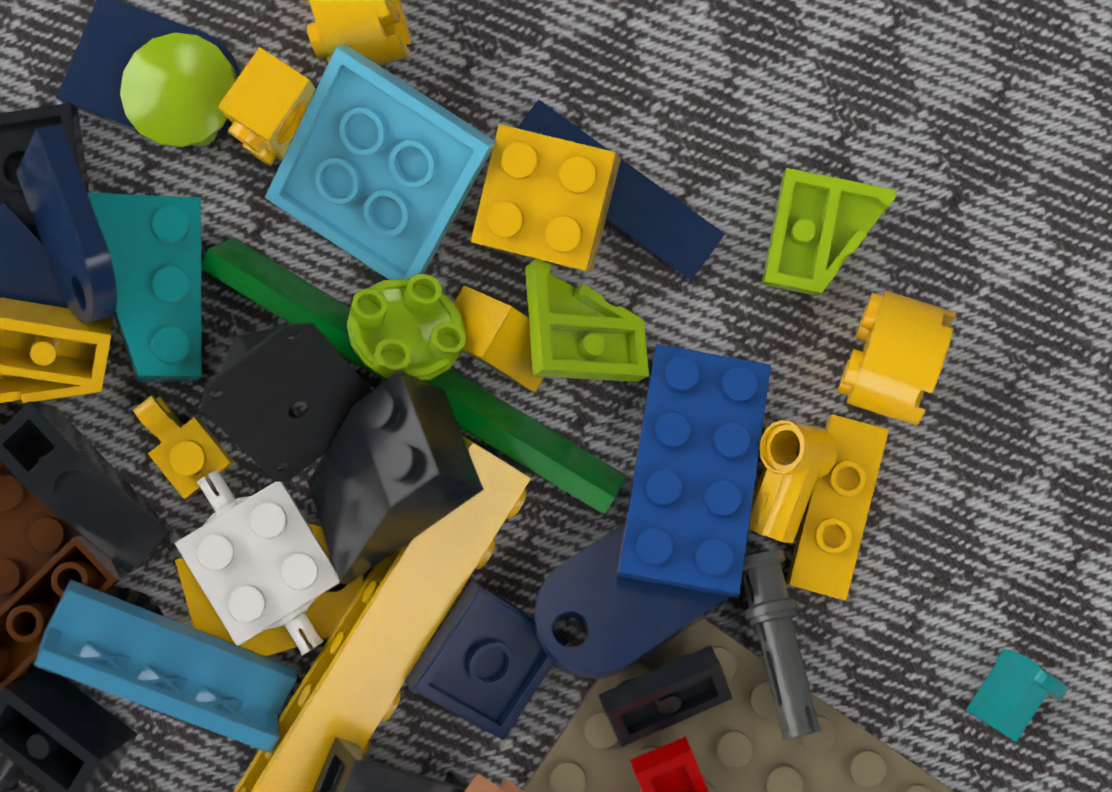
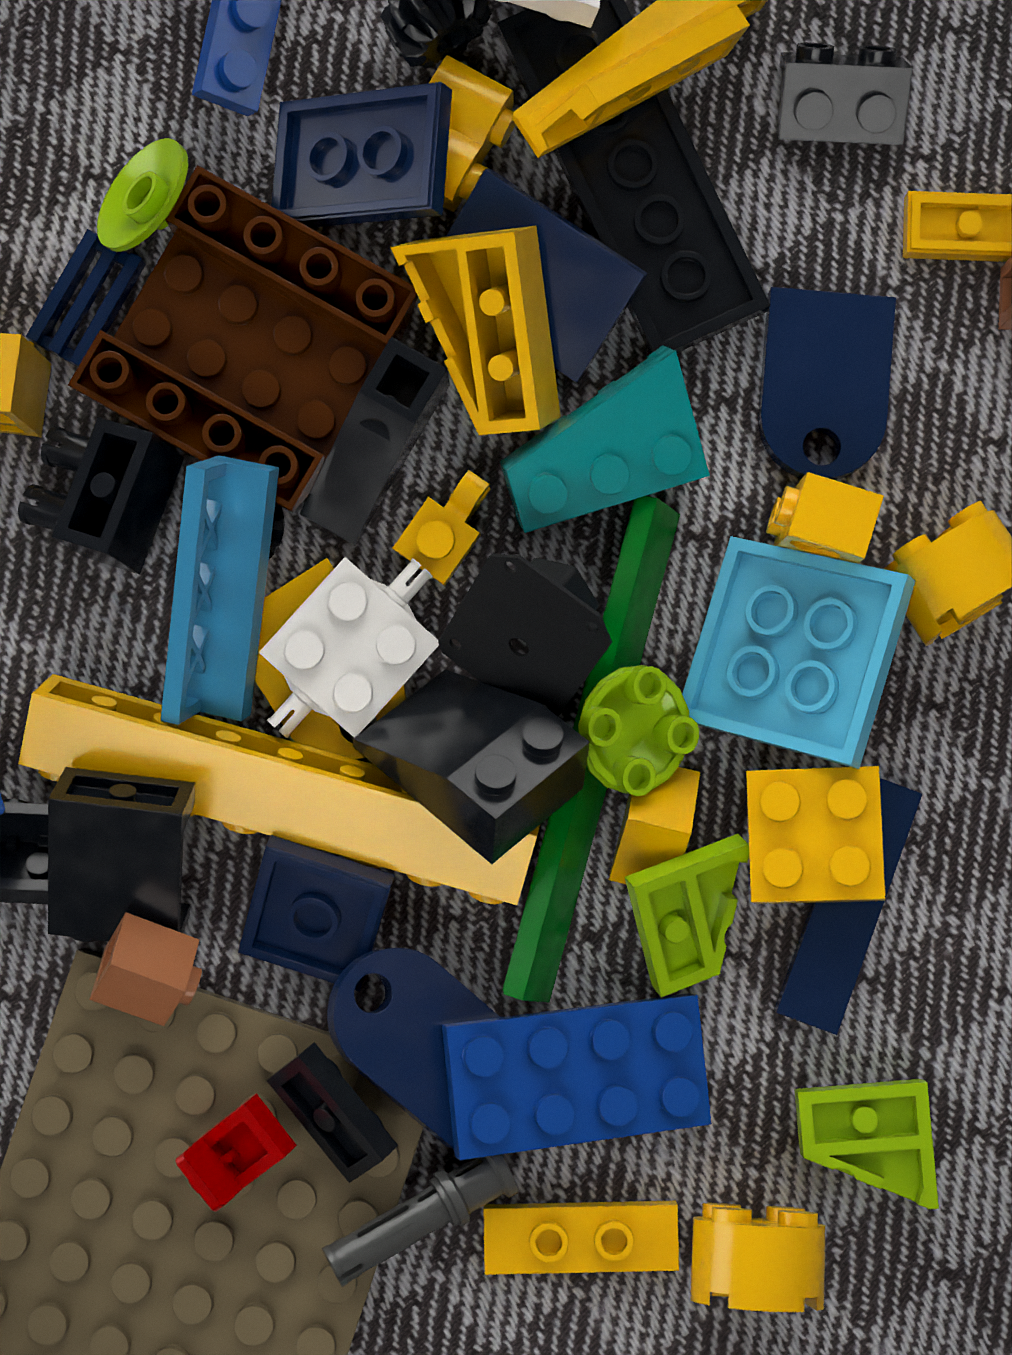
camera: 70 degrees right, 0 degrees up
(68, 225) = (638, 353): dark blue tile -> none
(176, 89) = (817, 414): lime dish -> none
(789, 479) = (591, 1175): yellow piece -> none

